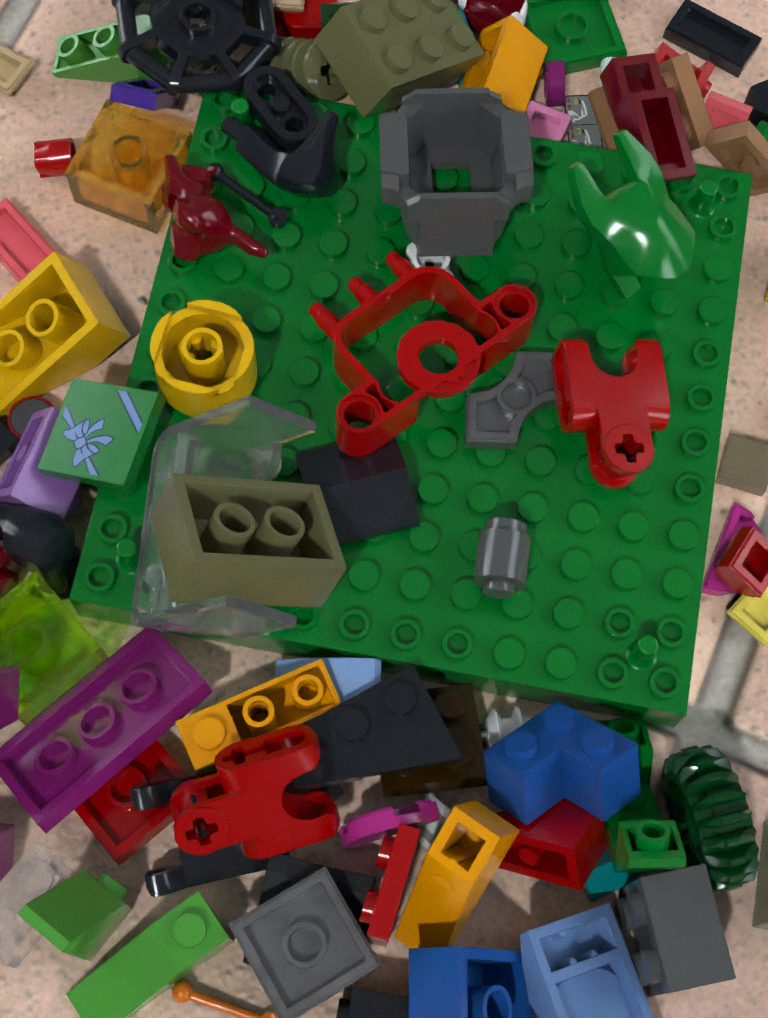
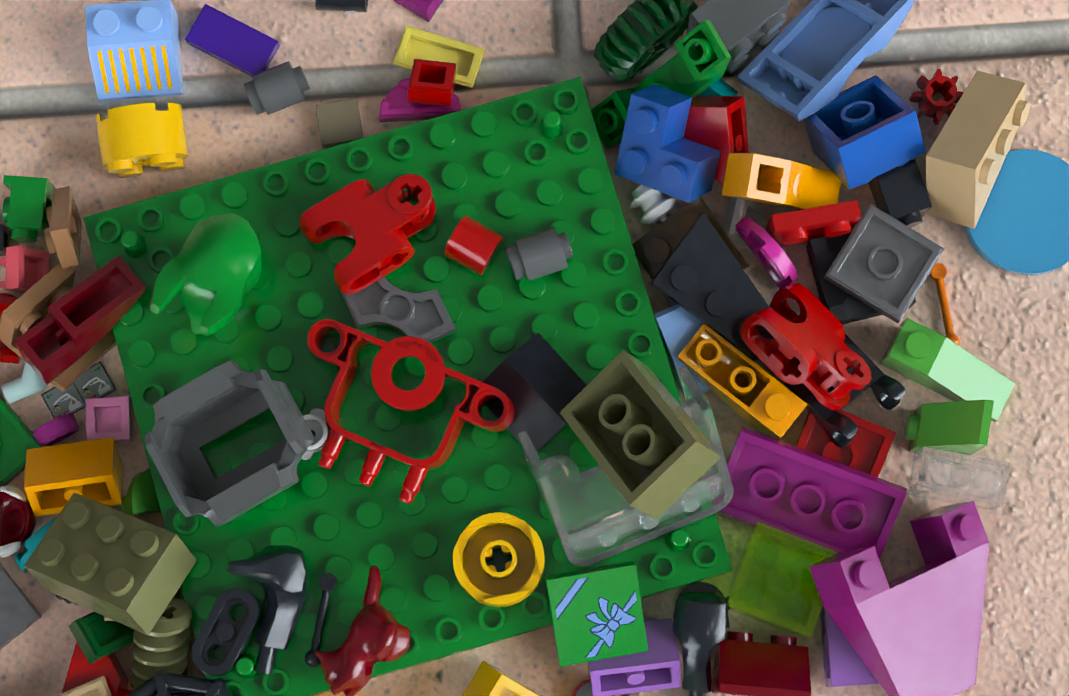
camera: 115 degrees left, 10 degrees up
(547, 502) = (473, 245): none -> red brick

